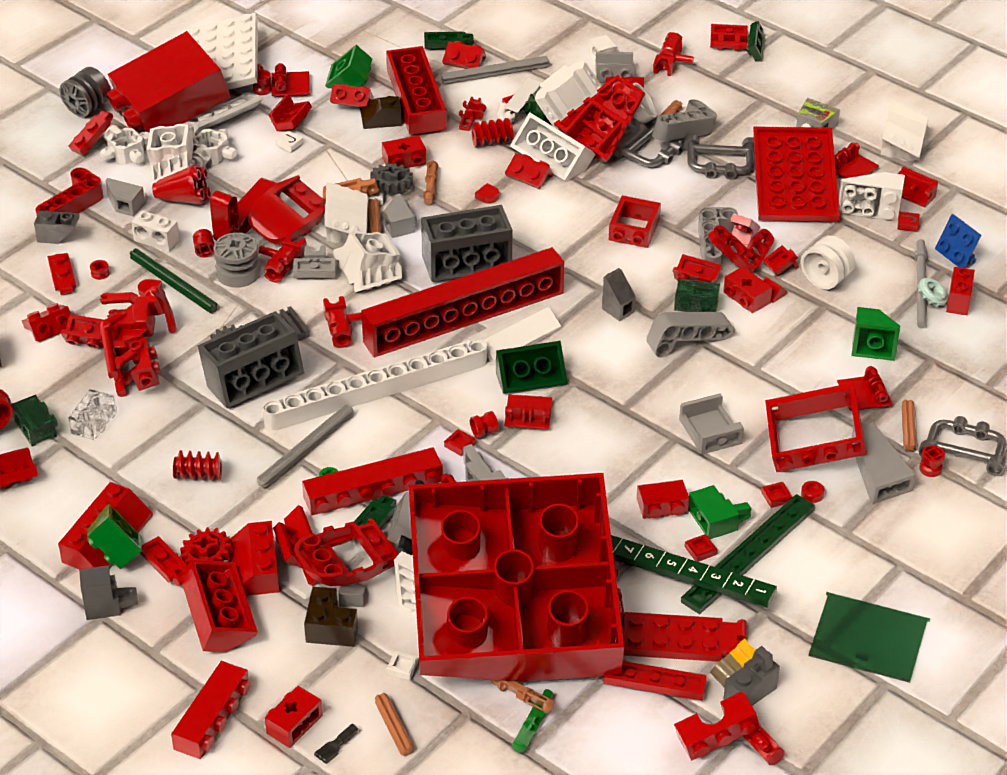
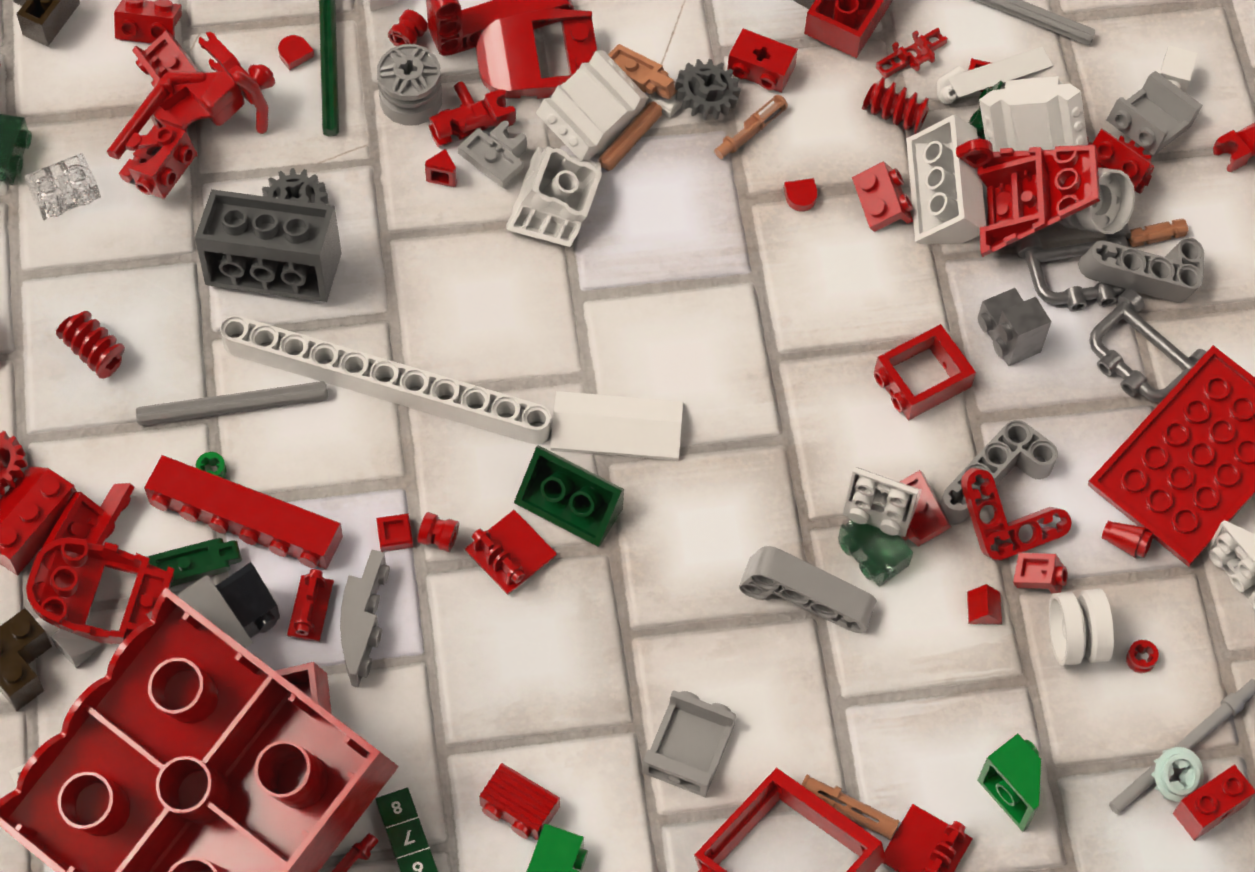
camera: 40 degrees right, 20 degrees up
(296, 319) = (392, 198): flat silver tile -> none
(297, 285) = (441, 169): none -> red slope
(340, 322) = (437, 257): red piece -> none
(399, 218) = (655, 153): light grey slope -> none
(462, 302) = (588, 341): red brick -> none
(465, 242) = (671, 259): dark grey brick -> none
(559, 119) = (975, 152): none -> red tile
(618, 295) = (774, 471): flat silver slope -> none
(654, 179) = (1014, 325): none -> flat silver brick
(688, 260) = (880, 502): none -> white slope
(744, 228) = (1049, 486): slope -> none
(747, 289) = (948, 601): red brick -> none
(802, 225) = (1128, 538): none -> red cone
(862, 264) = (1142, 665): none -> red bush

